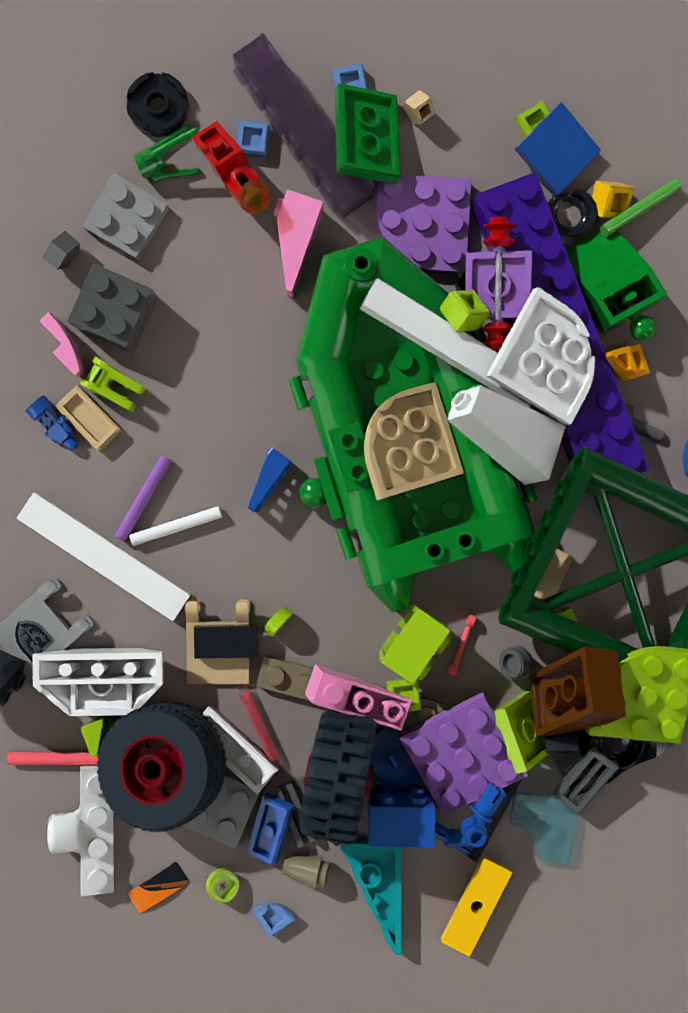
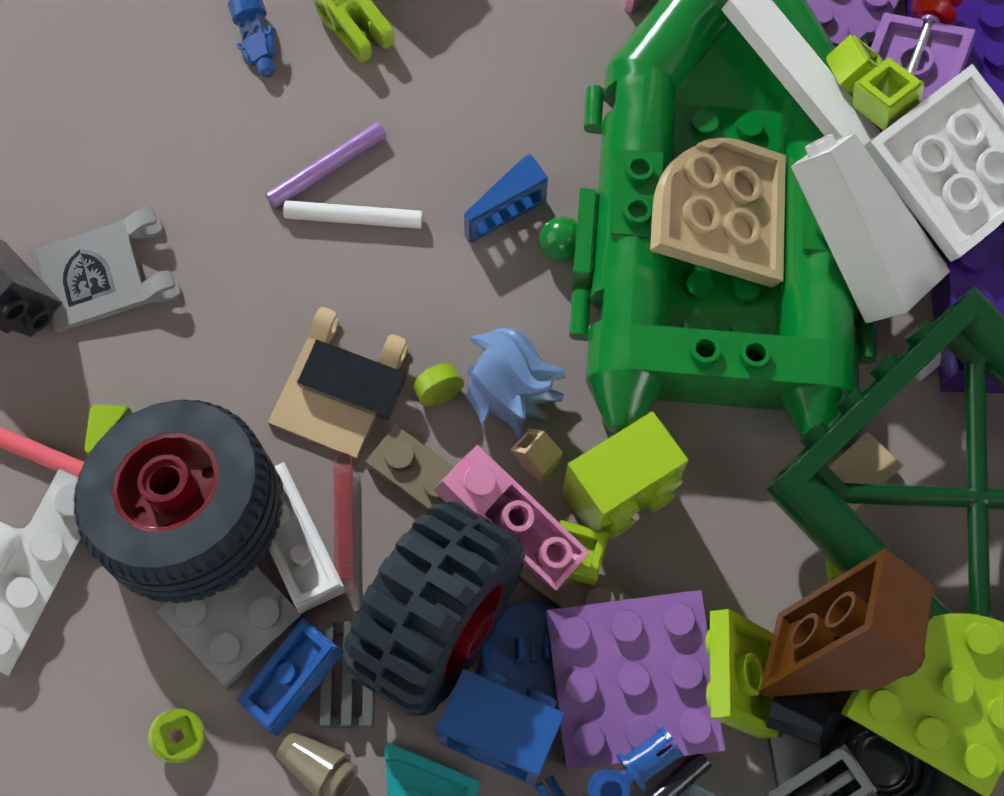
camera: 15 degrees right, 20 degrees down
(88, 418) = (303, 48): tan tile -> none
(98, 679) = (149, 350): white wedge -> none
(104, 556) = (239, 216): white tile -> none
(158, 887) = (76, 703): sticker -> none
(321, 604) = (511, 379): none -> medium blue hair
(354, 640) = (537, 454): none -> tan piece
(453, 669) = (664, 558): coral hinge -> none
(489, 330) = (887, 93): none -> lime slope
(514, 662) = (763, 579): dark grey tile -> none

